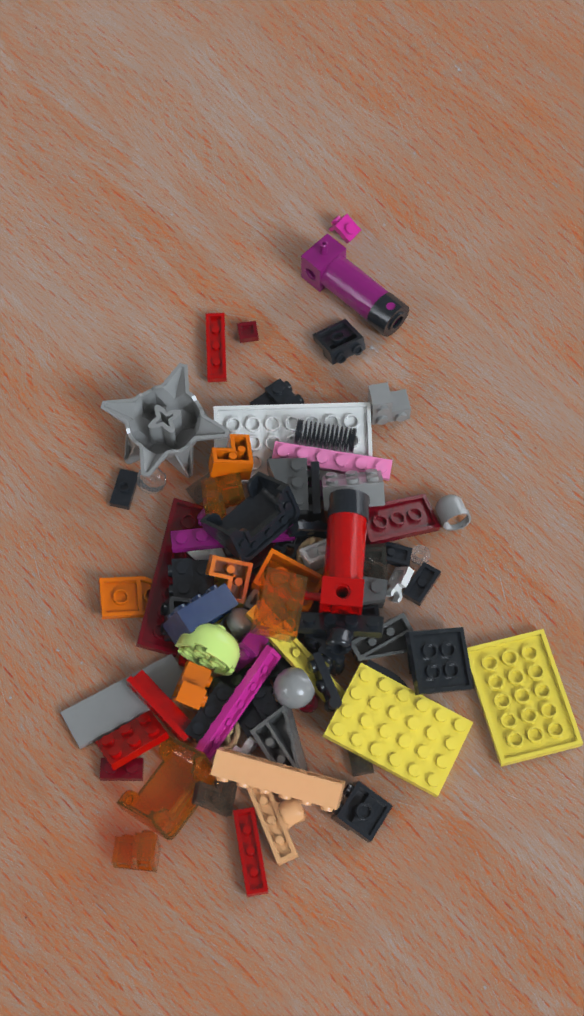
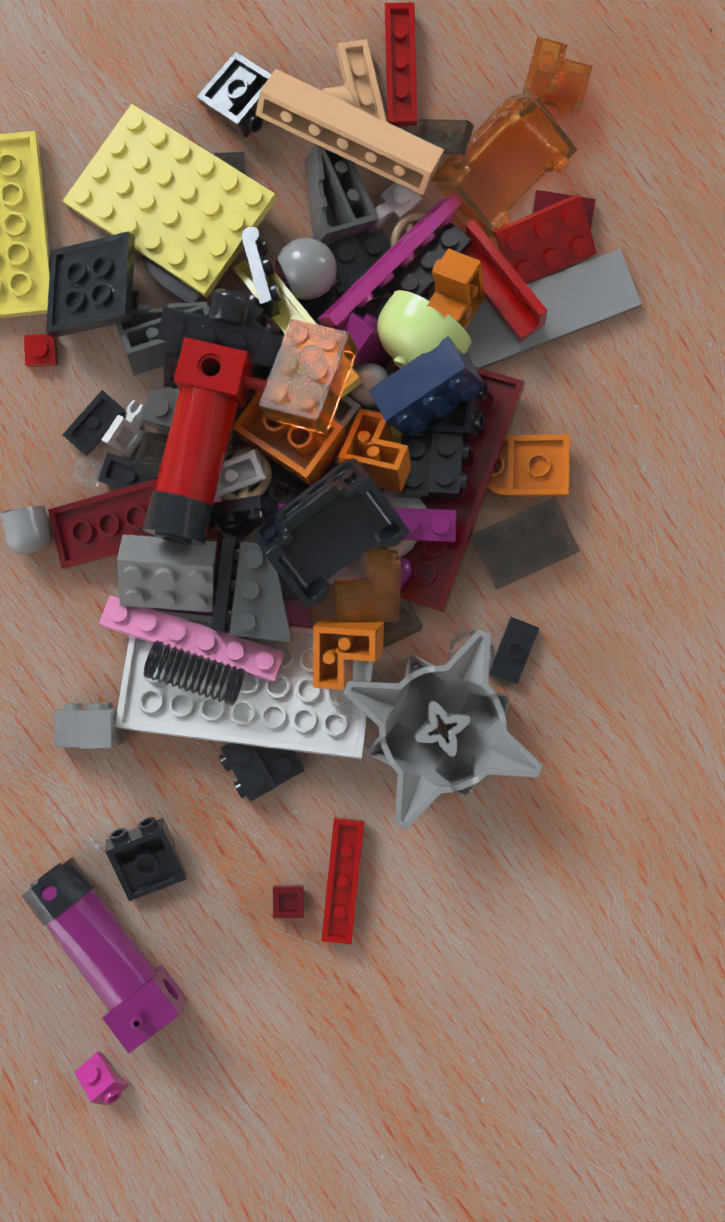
camera: 175 degrees left, 25 degrees up
(124, 550) = (525, 543): none -> clear smoke plate
(470, 625) = (40, 350): none -> red plate

